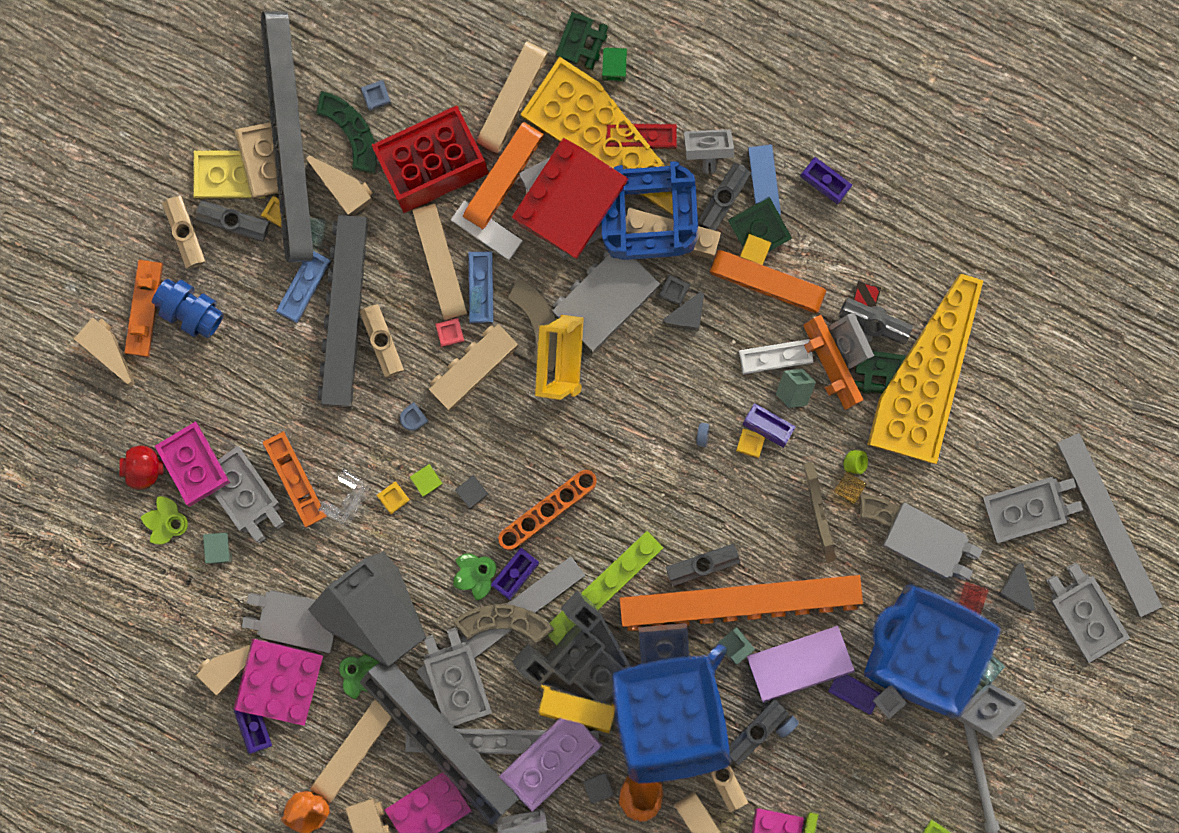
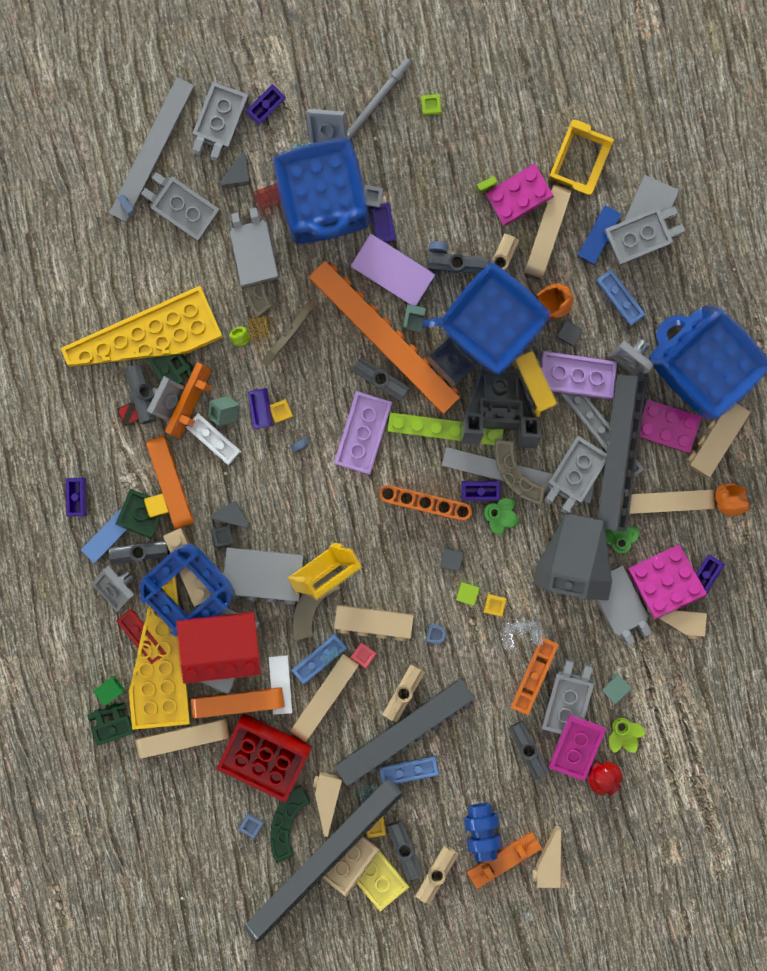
camera: 130 degrees left, 5 degrees up
(243, 418) = (534, 760): none -> dark grey piece
(664, 506) = (363, 432): none -> lavender tile
(1065, 671) = (265, 104): none -> dark purple brick
(1072, 455) = (126, 205): none -> sand blue tile

